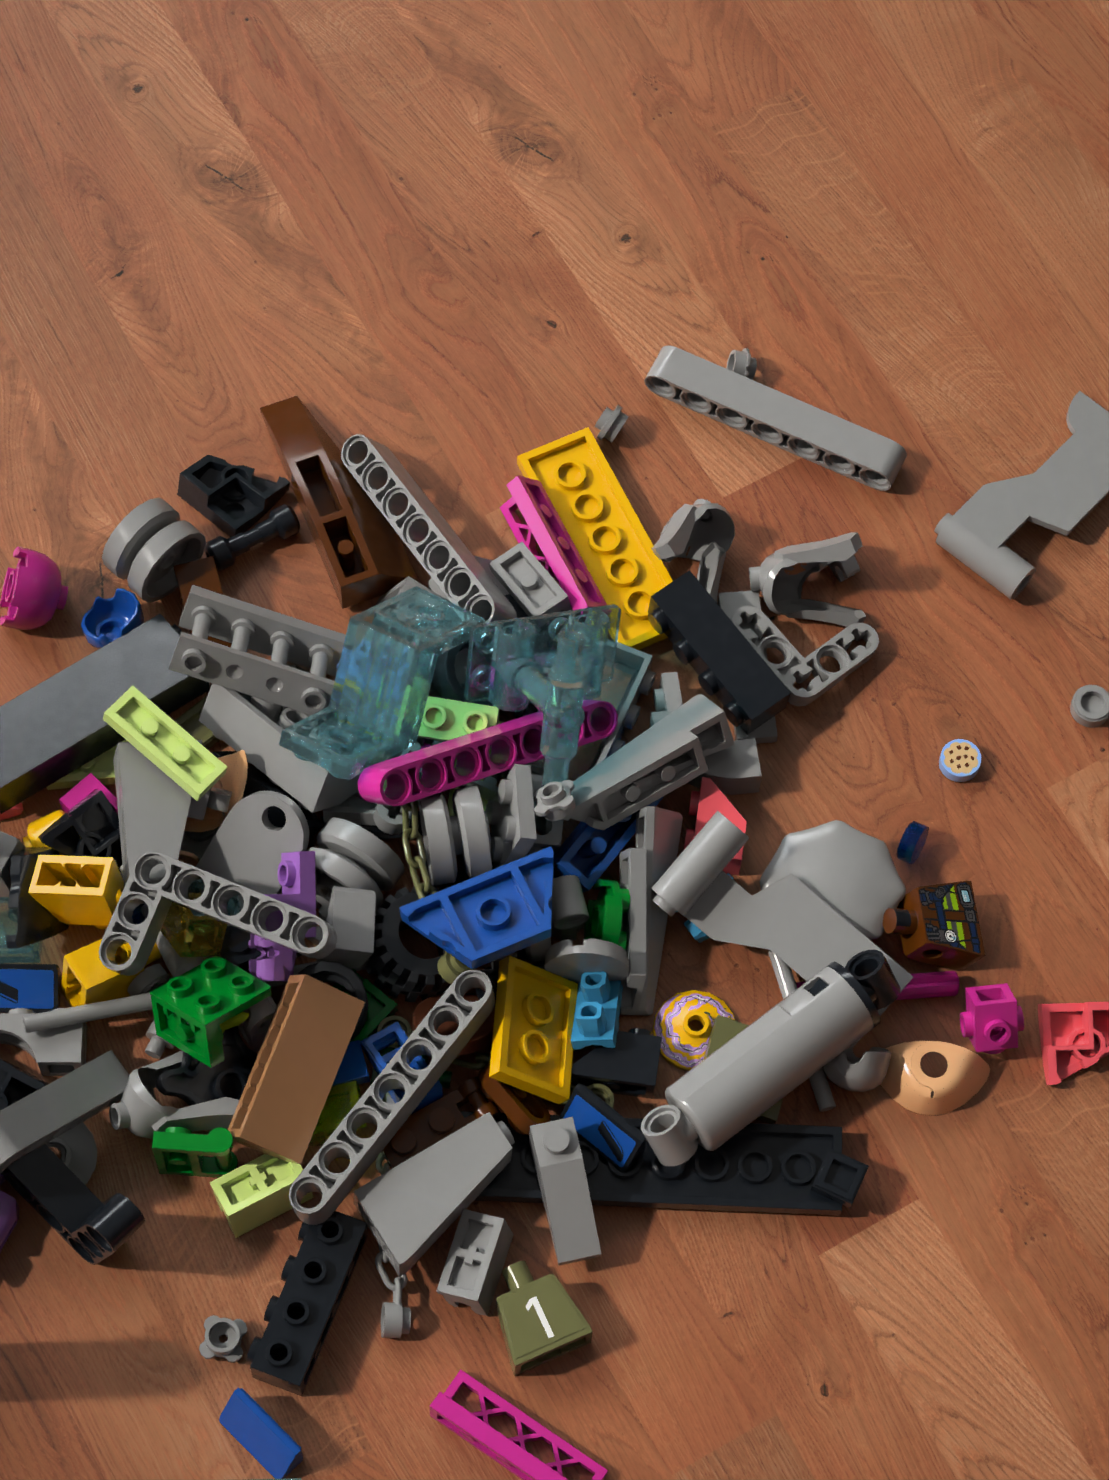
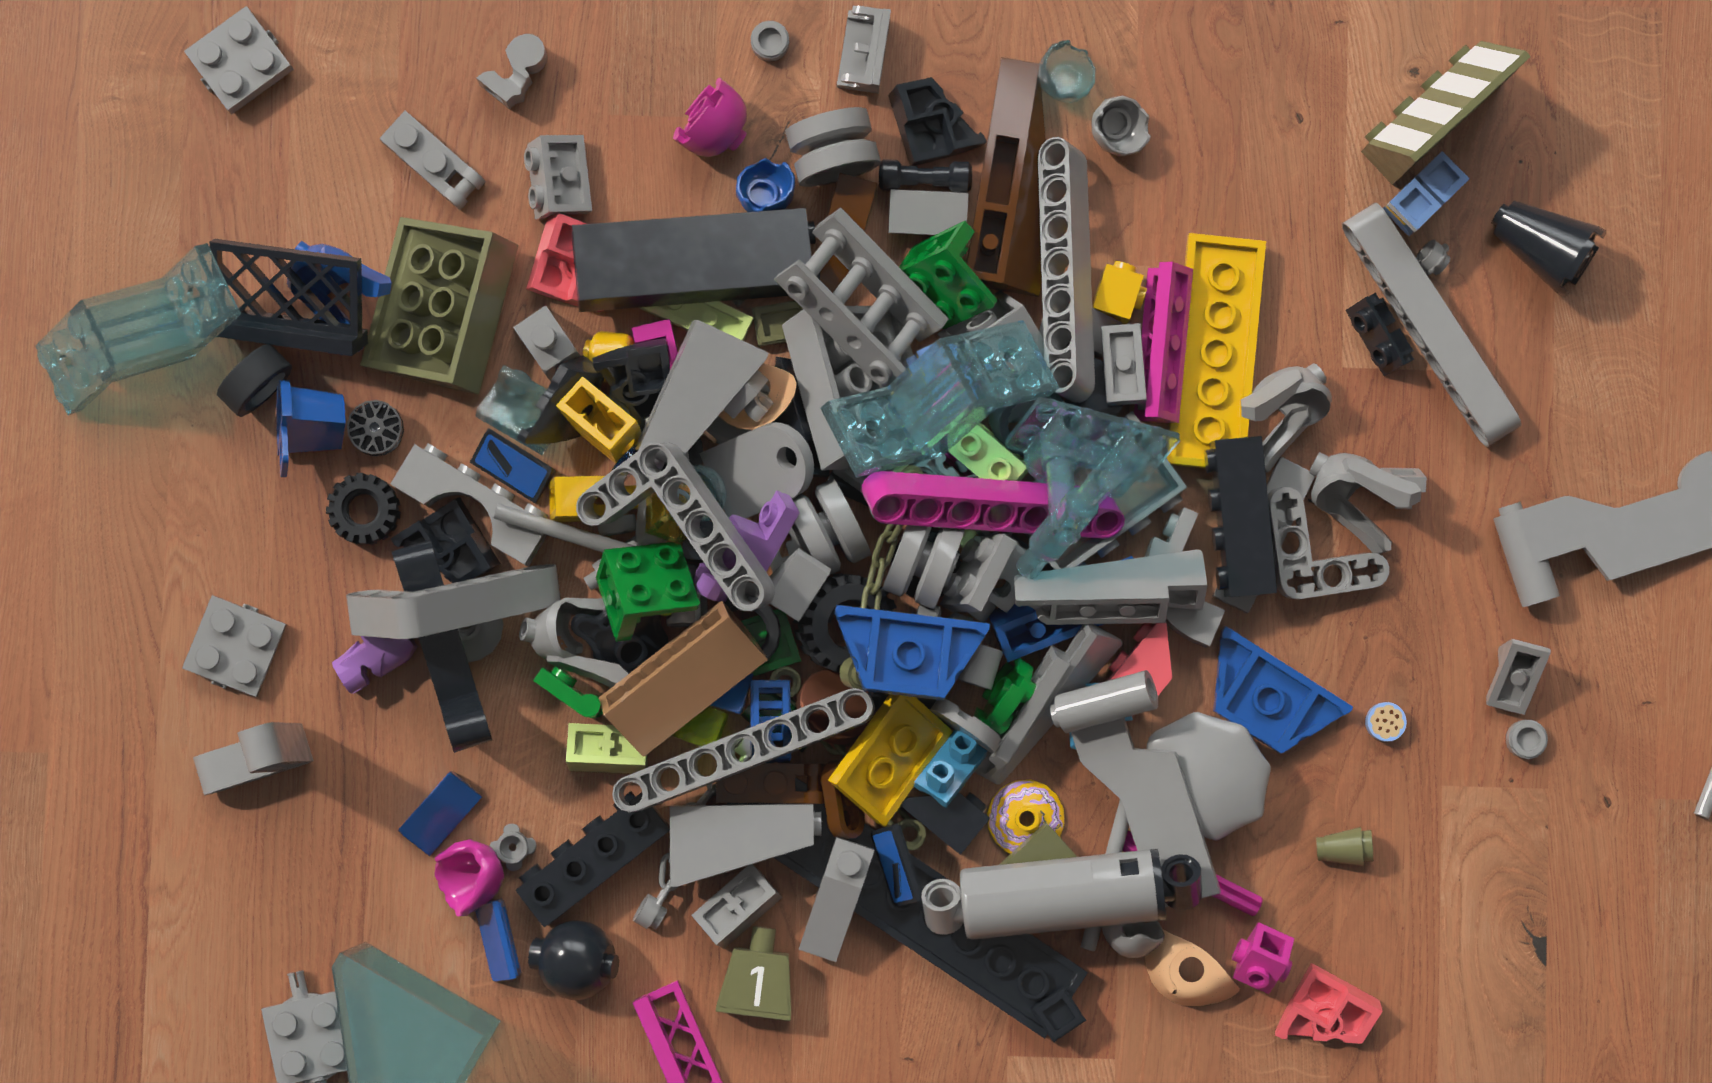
camera: 25 degrees right, 20 degrees up
(42, 505) = (769, 41): none -> light grey tile
(132, 463) = (864, 49): none -> light grey hinge
(132, 1348) = (440, 813): none -> blue slope
(165, 743) = (733, 345): yellowish green plate -> none
(194, 1385) = (468, 875): none -> dark pink hair
(272, 561) = (925, 211): none -> light grey hinge
(325, 388) = (1066, 72): none -> clear light blue hair
(325, 594) = (945, 277): none -> green bracket
(348, 1403) = (574, 960): none -> black brick
(400, 404) = (1120, 126): none -> light grey hair
(486, 532) = (1119, 291): none -> yellow brick
(555, 800) = (1017, 594): light grey plate -> none
(610, 423) = (1288, 247): light grey plate -> none
(667, 243) = (1441, 107): none -> olive slope
(699, 311) = (1426, 193): none -> medium blue hips
(728, 448) = (1386, 349): none -> black hinge
(829, 299) = (1548, 242): none -> black cone
(851, 790) = (1270, 696): none -> blue wing
(912, 842) = (1298, 770): clear blue tile -> none
(938, 925) = (1272, 856): torso -> none
(1001, 881) = (1346, 847): none -> olive cone
(1045, 649) = (1517, 675): none -> light grey slope

